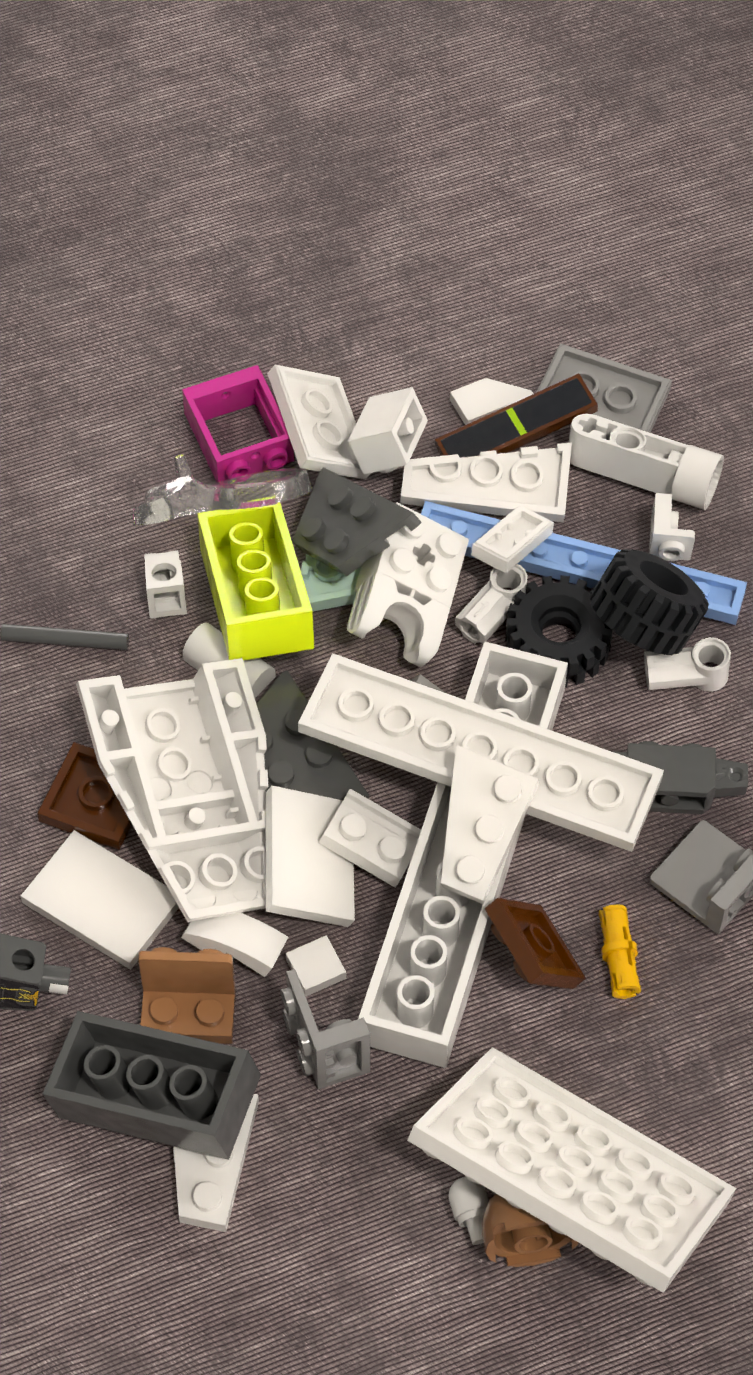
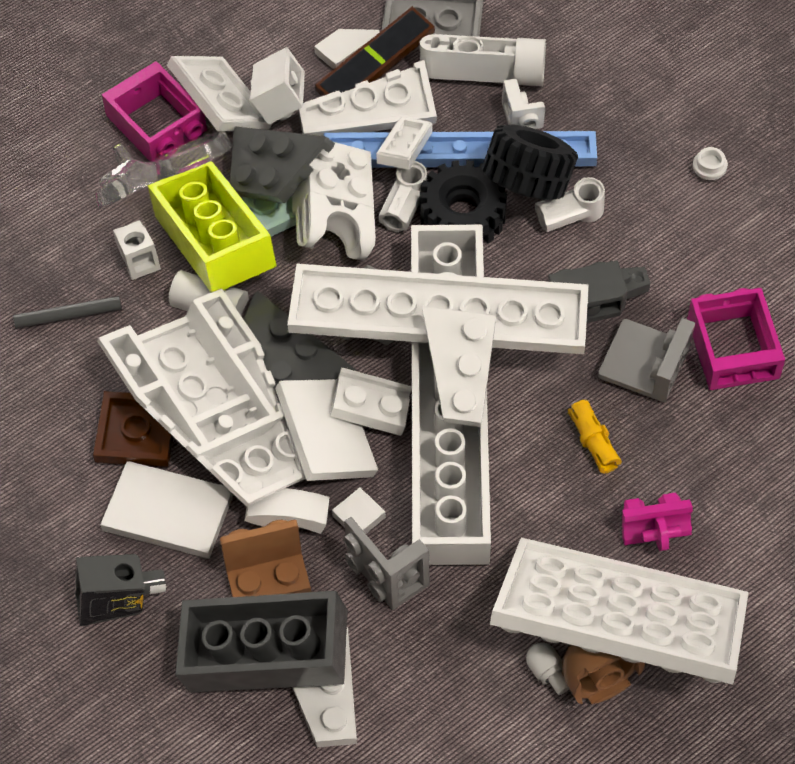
camera: 15 degrees left, 0 degrees up
(534, 943) = (534, 451): reddish brown plate -> none
(655, 1074) = (656, 522): none -> dark pink hips

